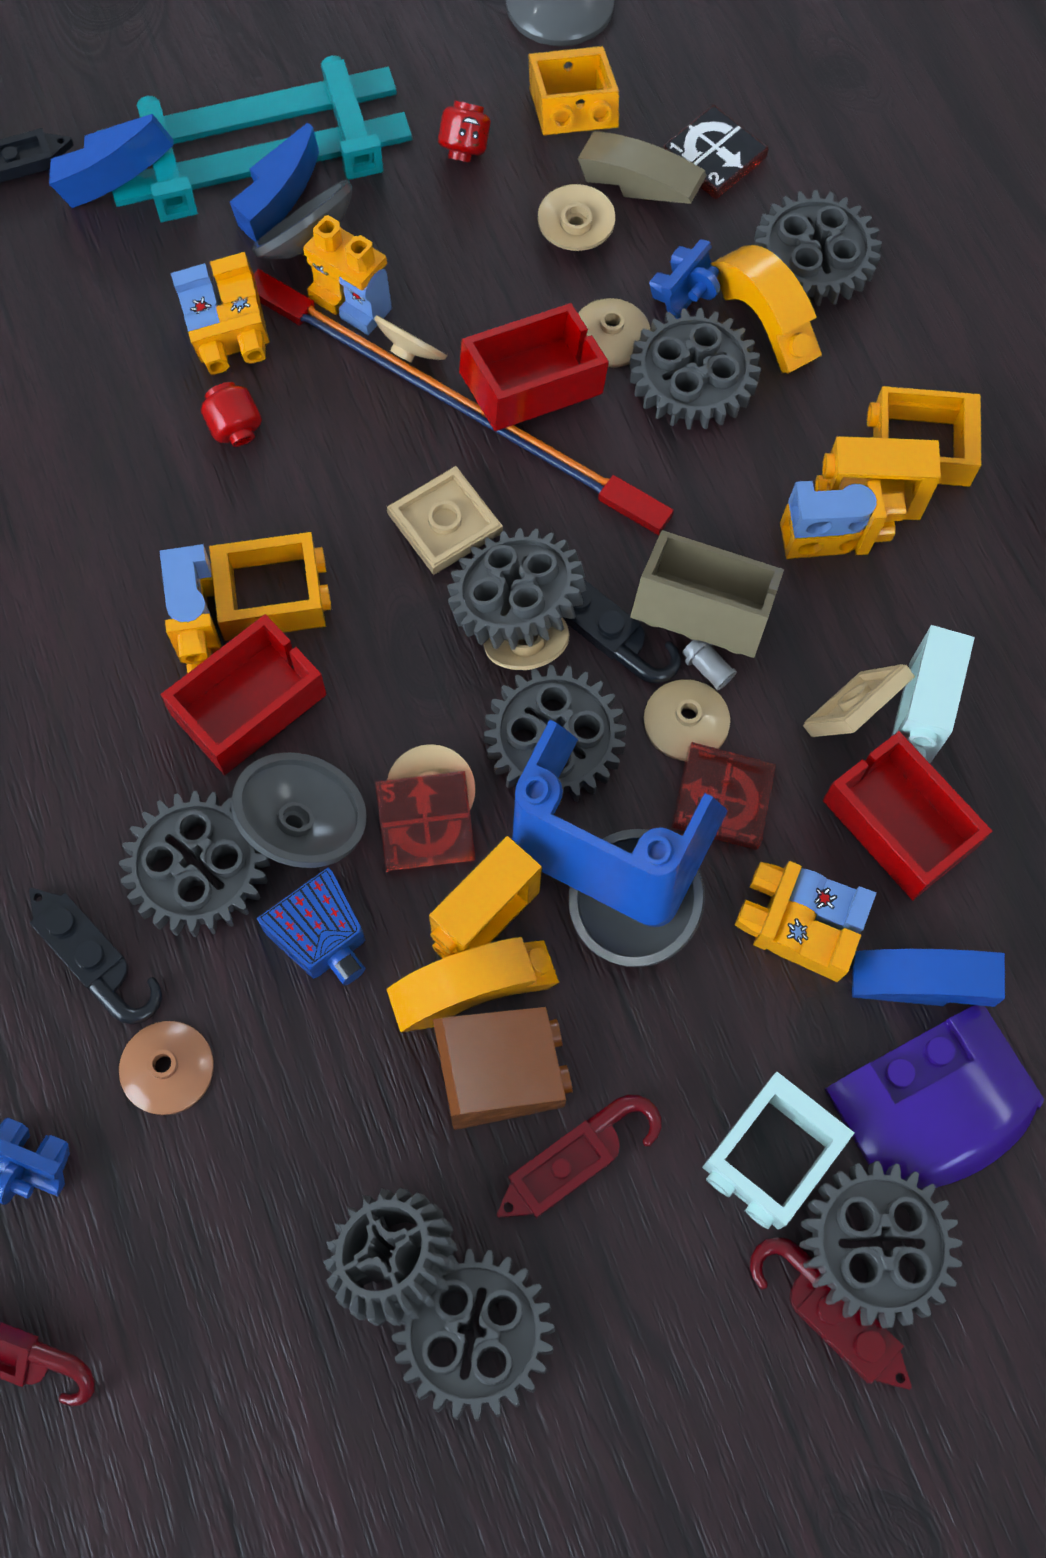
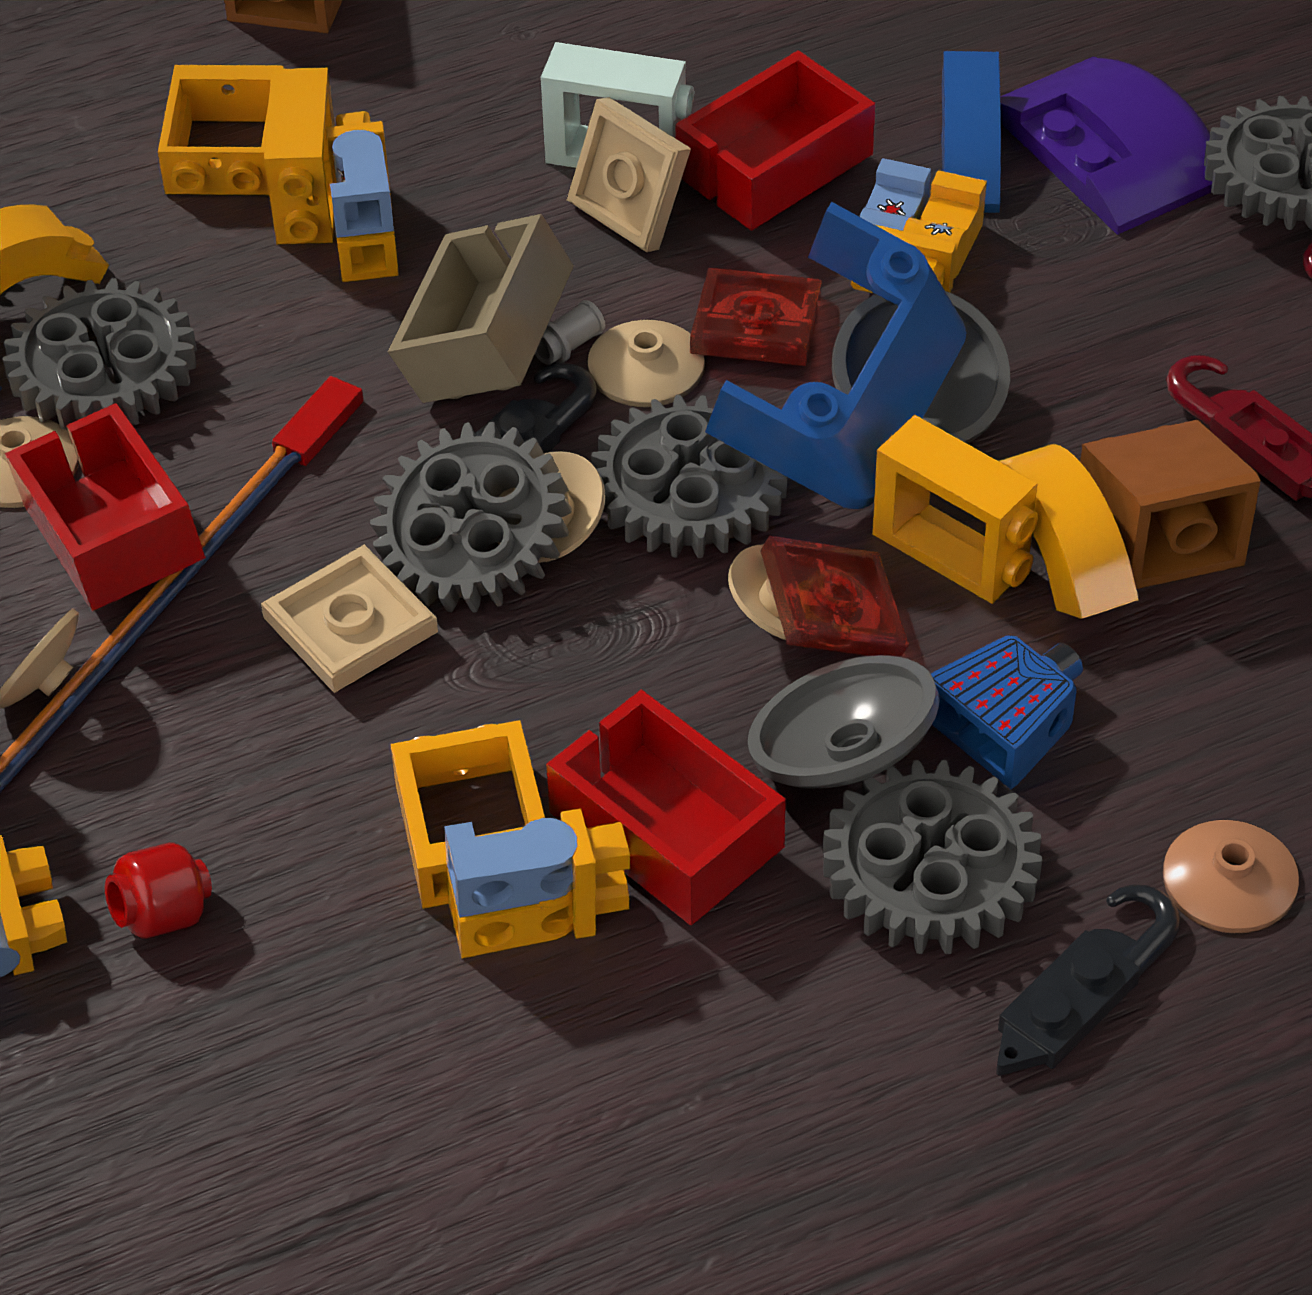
camera: 90 degrees left, 20 degrees down
(805, 1114) = (1196, 289): light aqua window -> none

